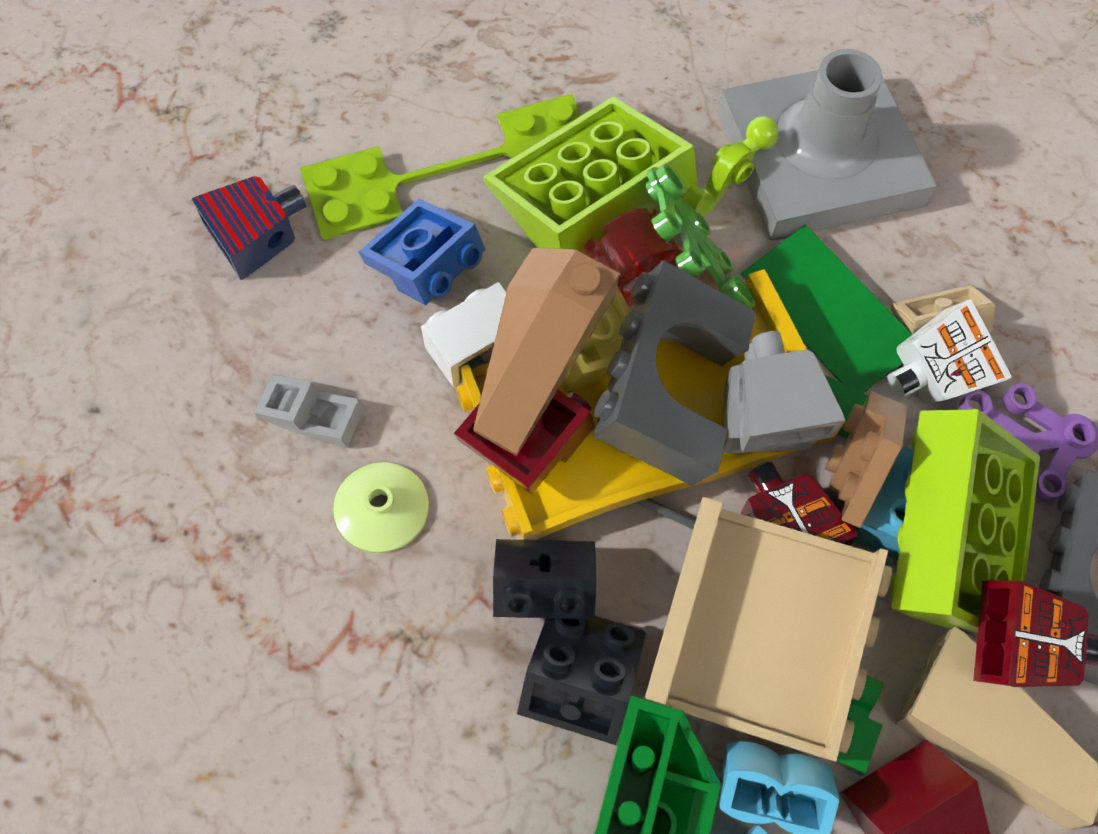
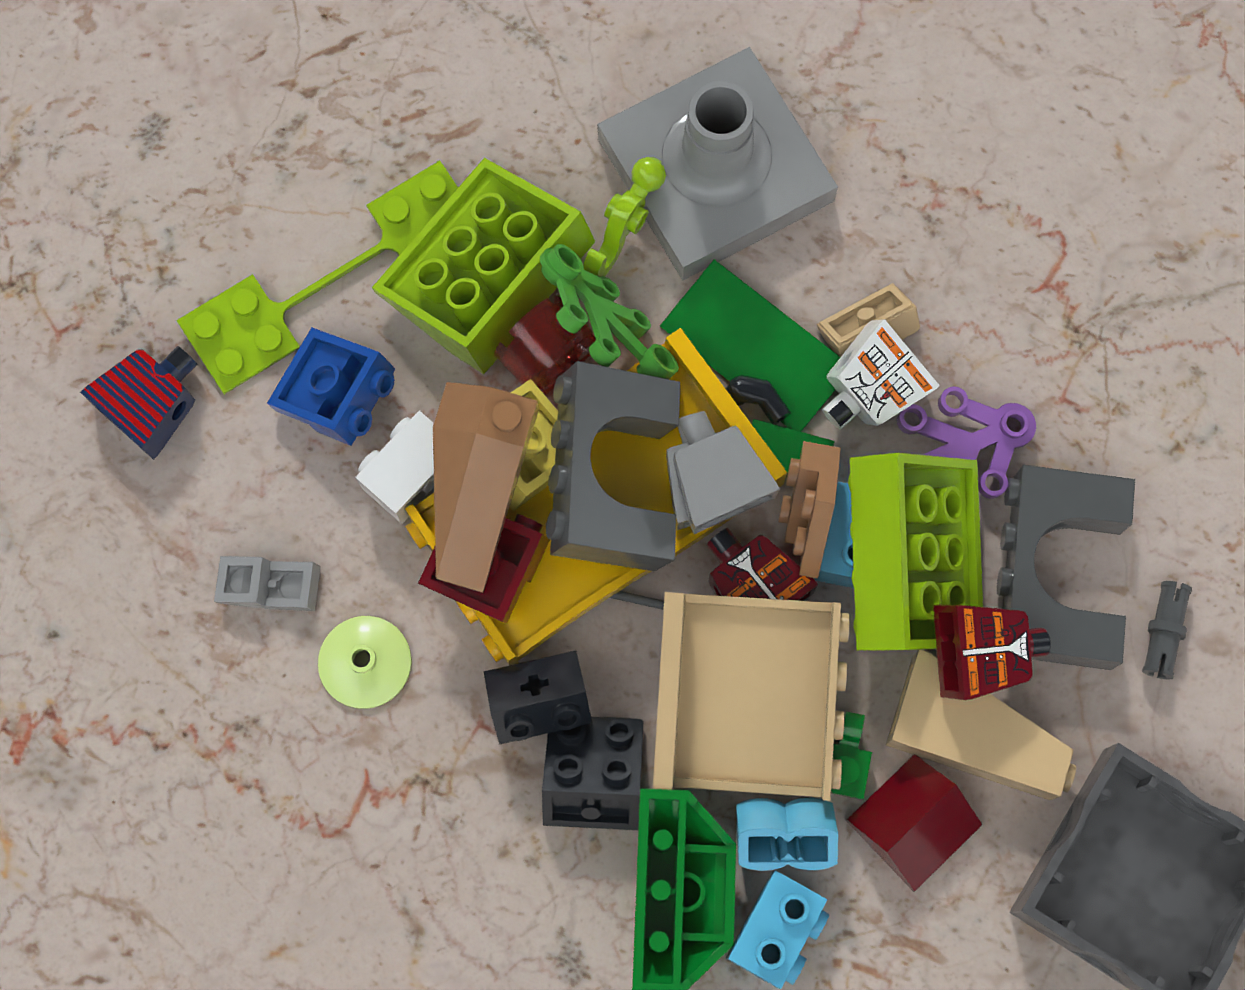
camera: 10 degrees left, 10 degrees up
(830, 351) = (761, 392): none -> black arm

